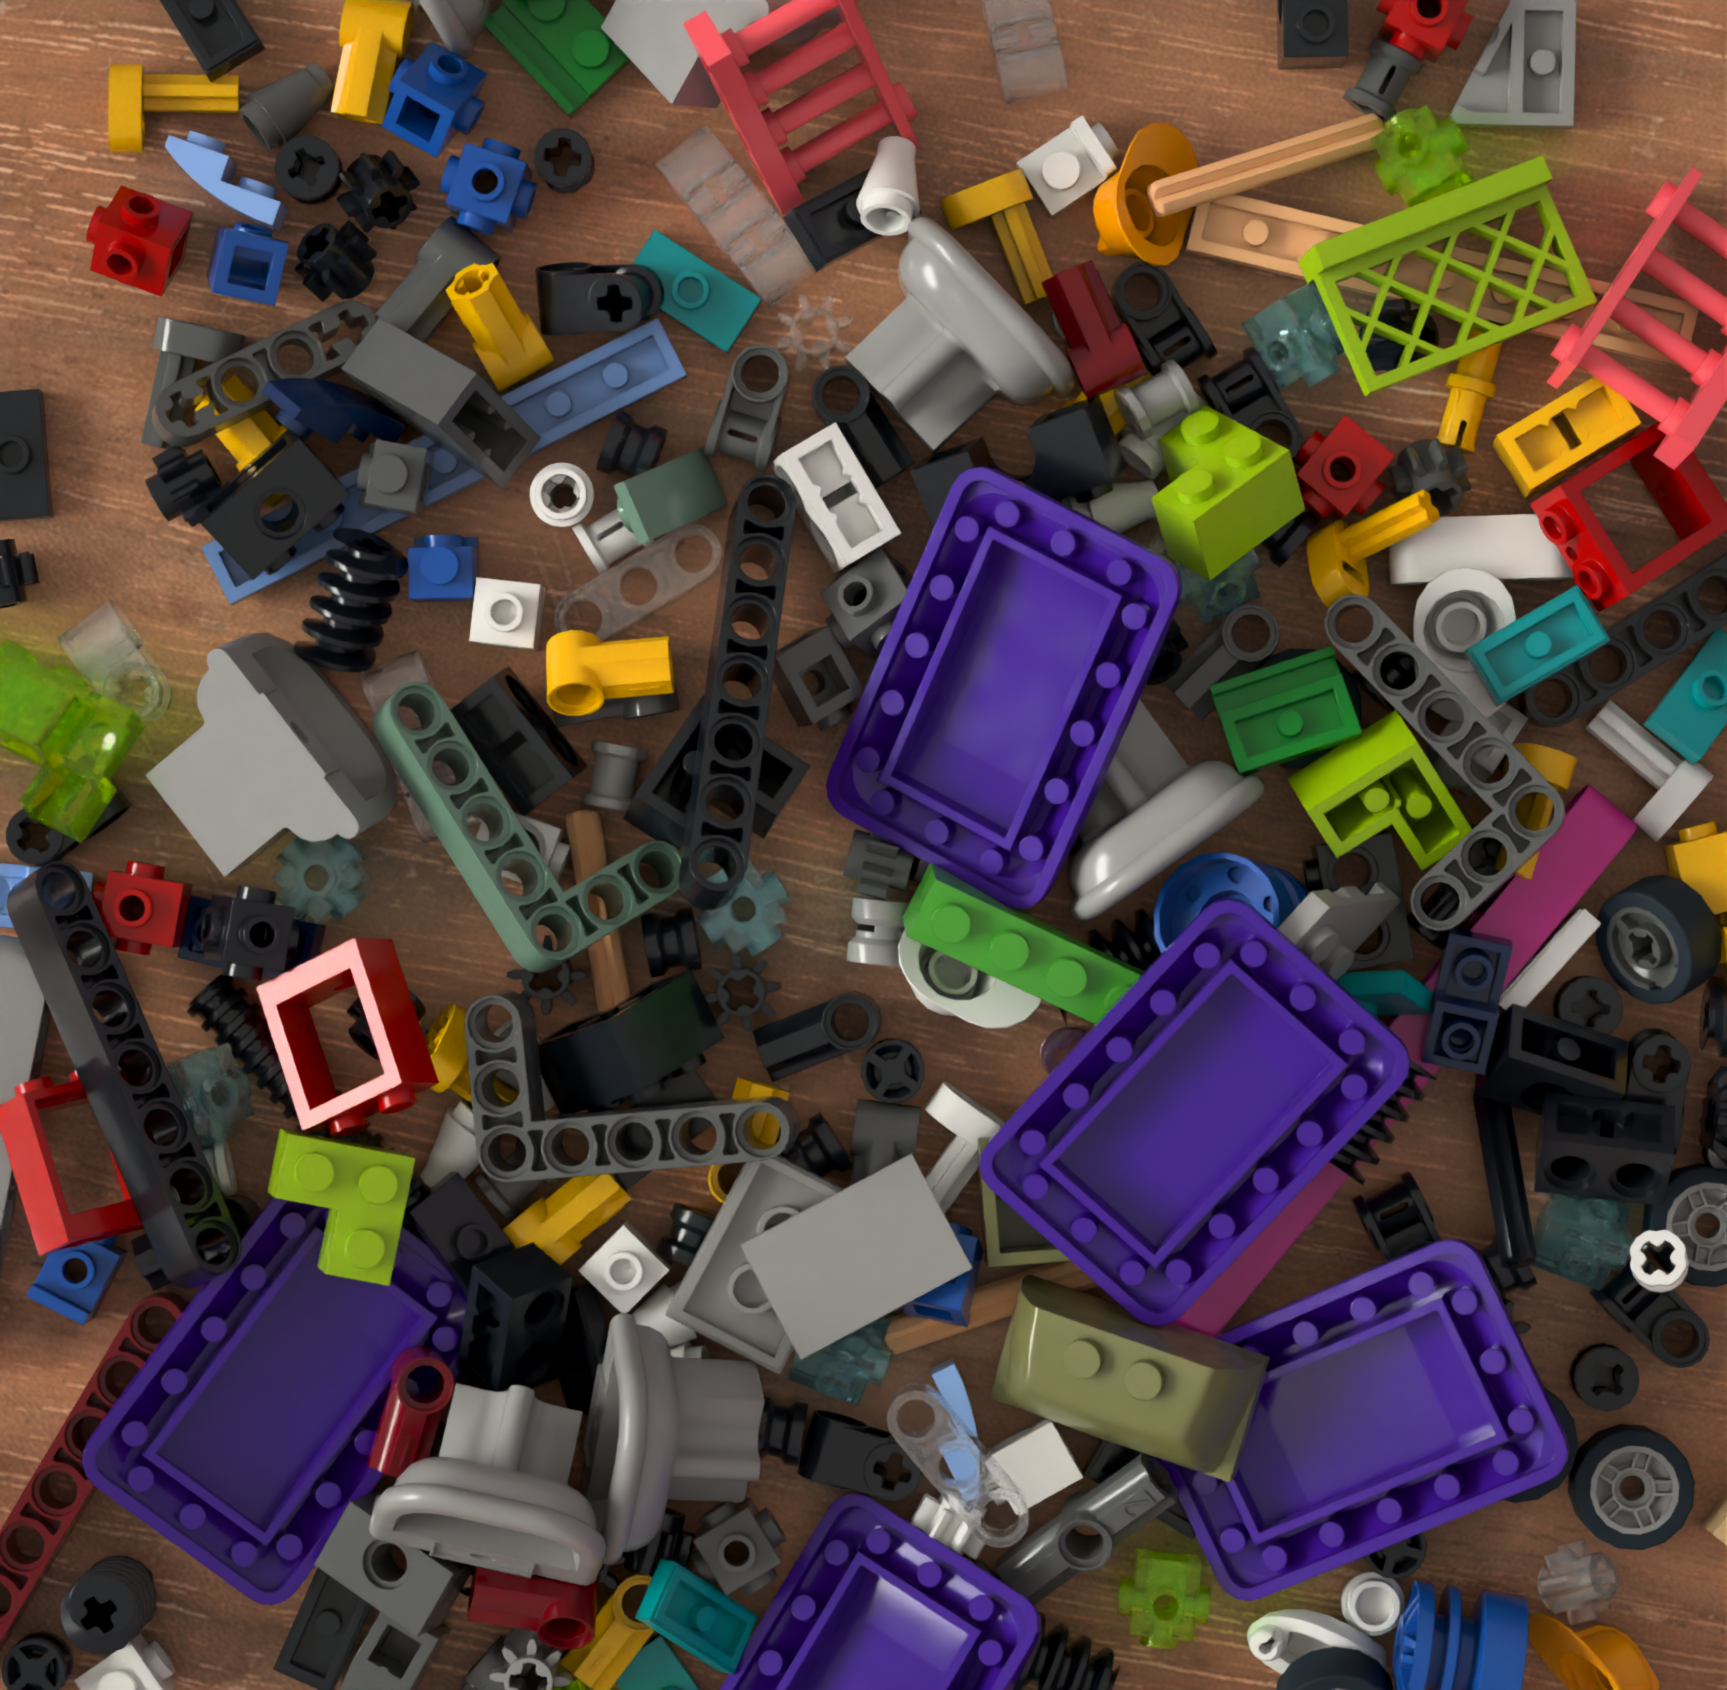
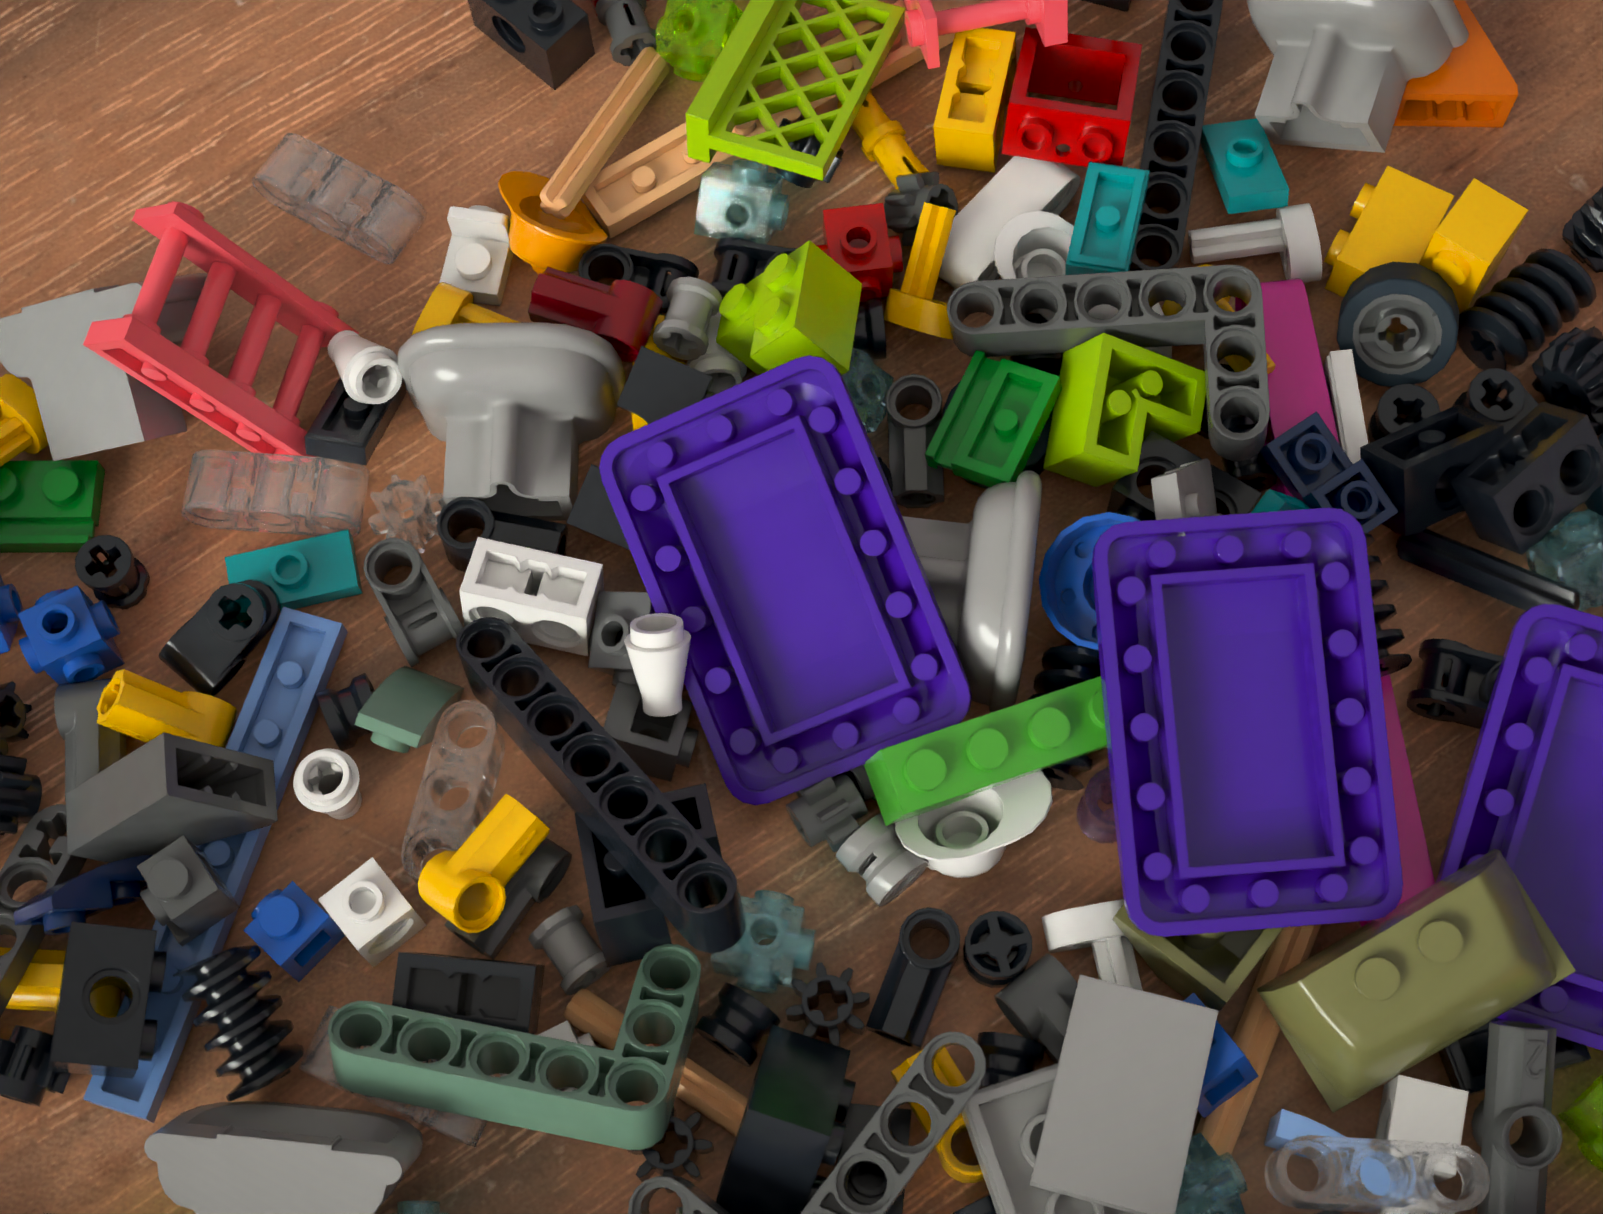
camera: 40 degrees left, 20 degrees down
(606, 540) = (396, 784): white bush -> none
(865, 649) = (659, 660): none -> white cone

